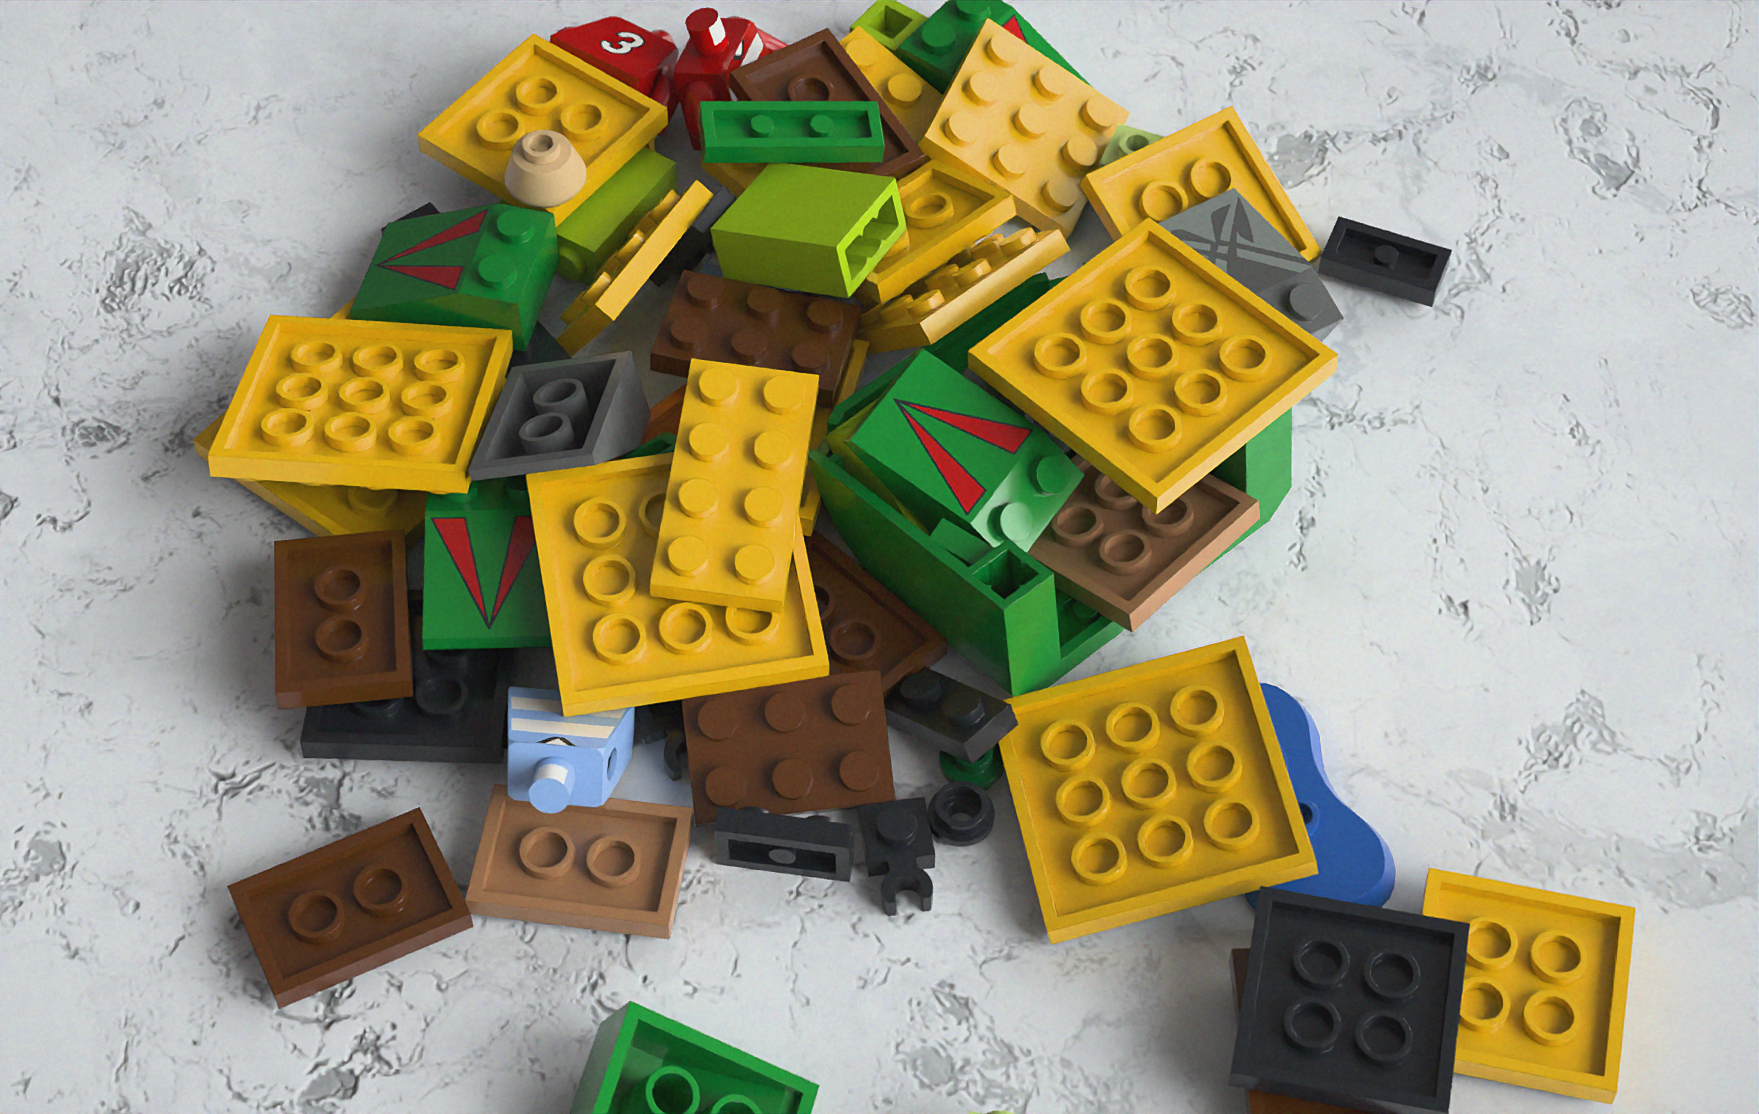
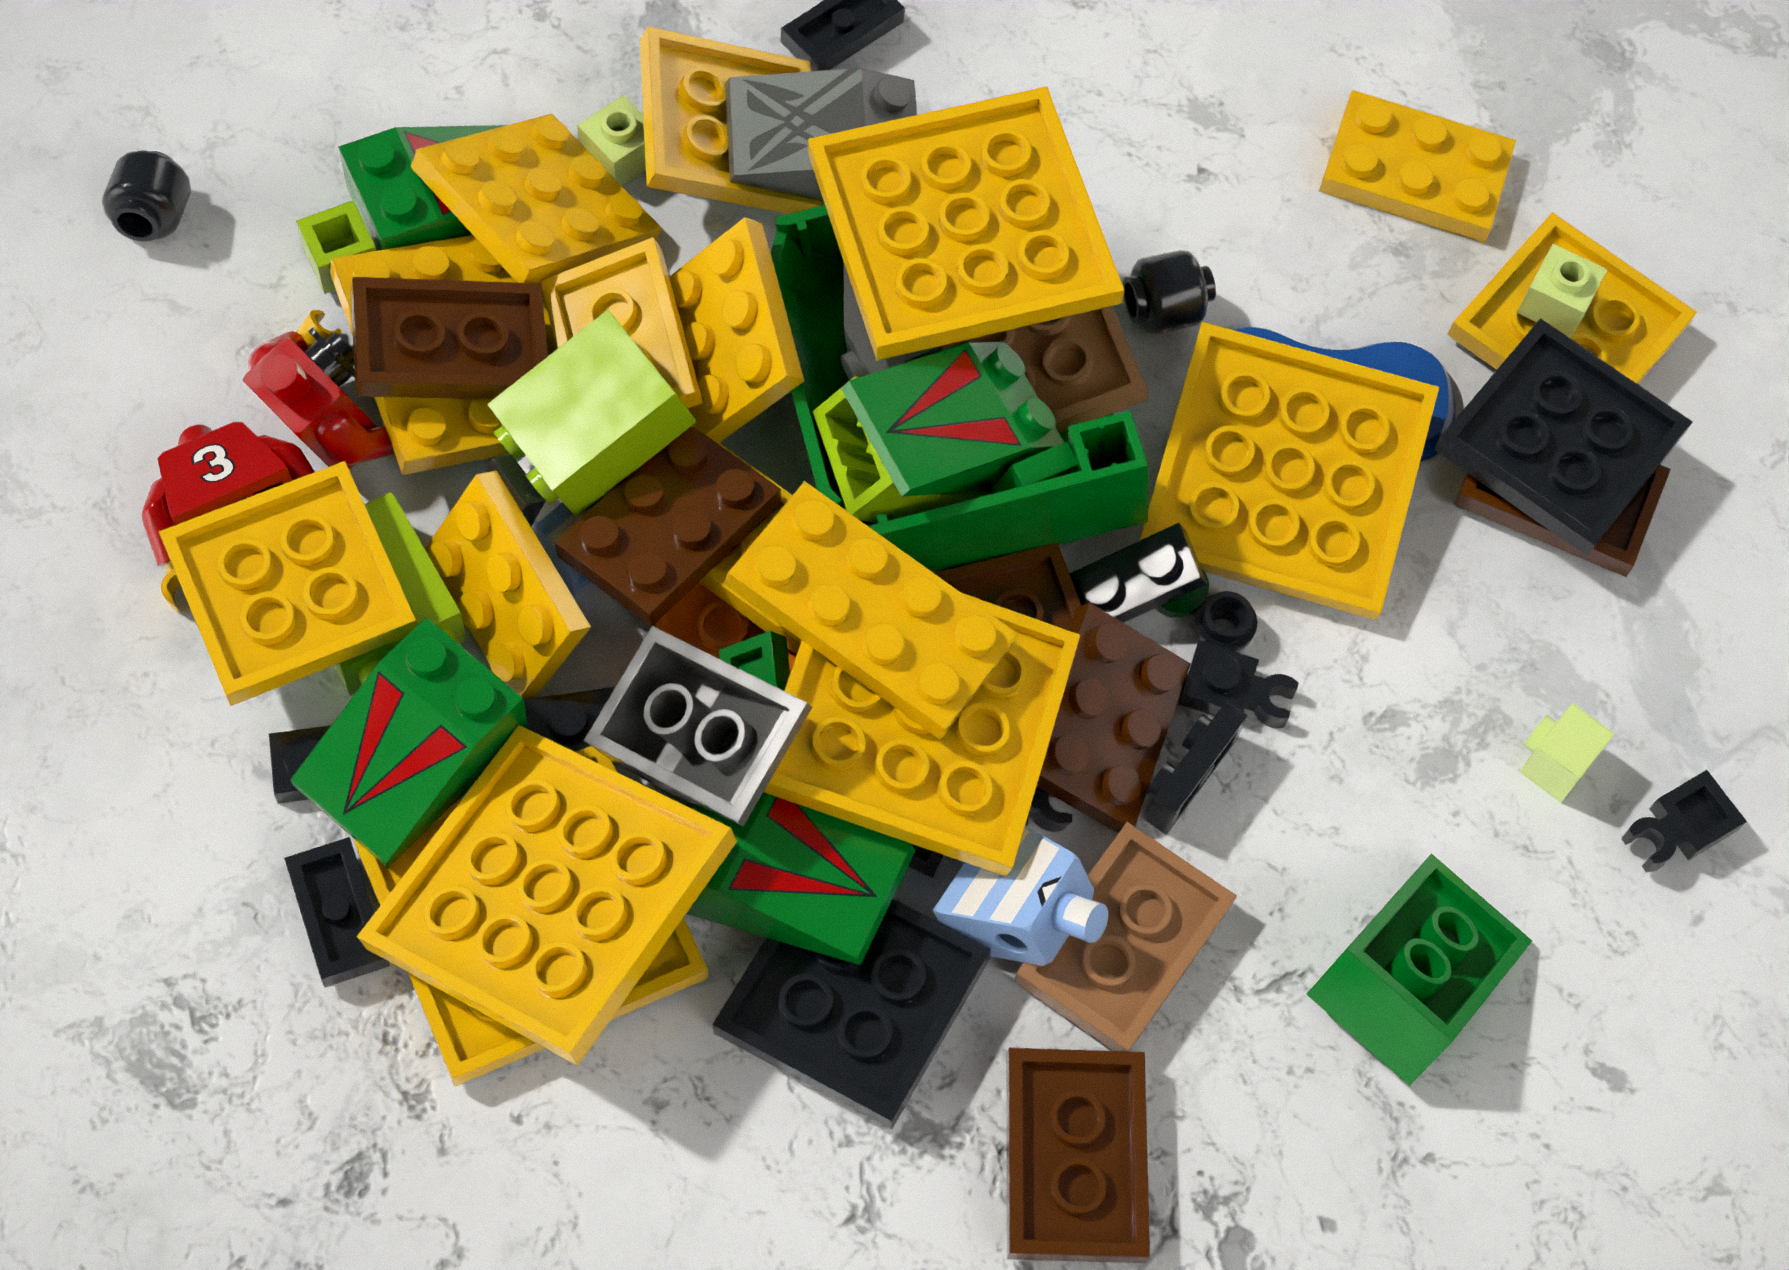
camera: 70 degrees left, 10 degrees up
(313, 293) = (334, 910): none -> black plate
(342, 619) = (779, 1022): reddish brown plate -> none
(544, 170) = (372, 600): tan cone -> none
(790, 131) = (473, 369): green plate -> none
(1281, 616) = (1168, 291): none -> black head
(1527, 938) = (1562, 290): none -> yellowish green plate
(1611, 780) = (1418, 166): none -> yellow plate

